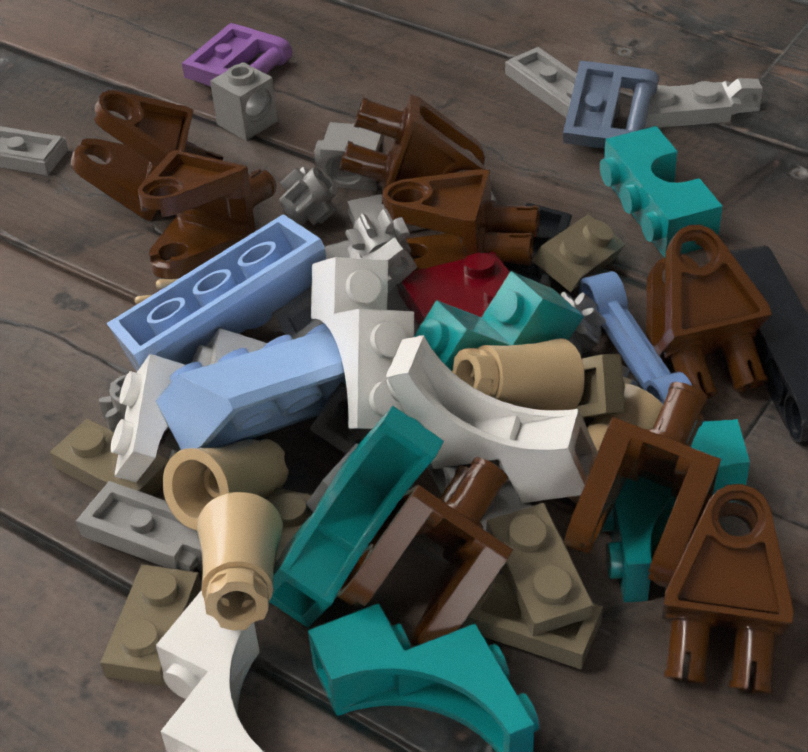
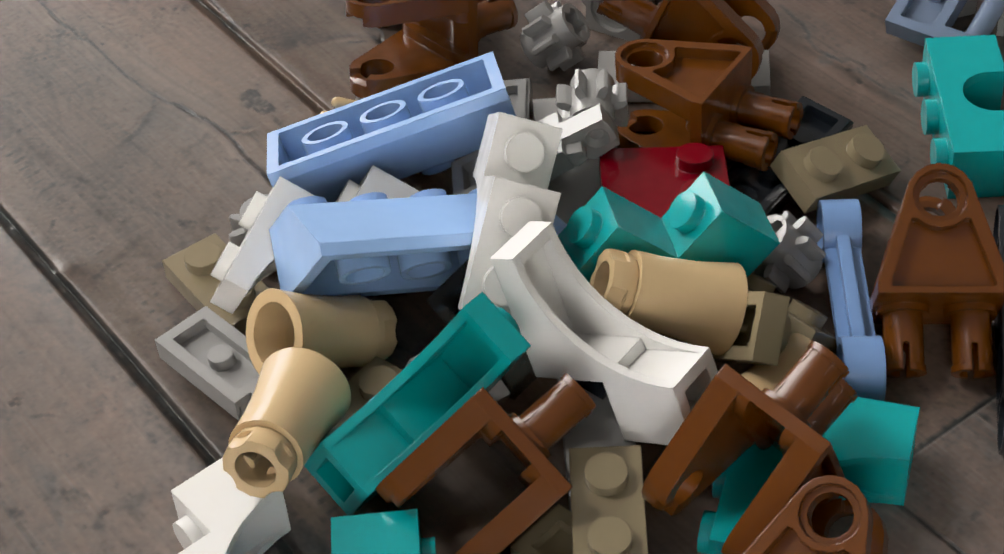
camera: 20 degrees right, 0 degrees up
(149, 612) = (186, 454): dark tan plate -> none

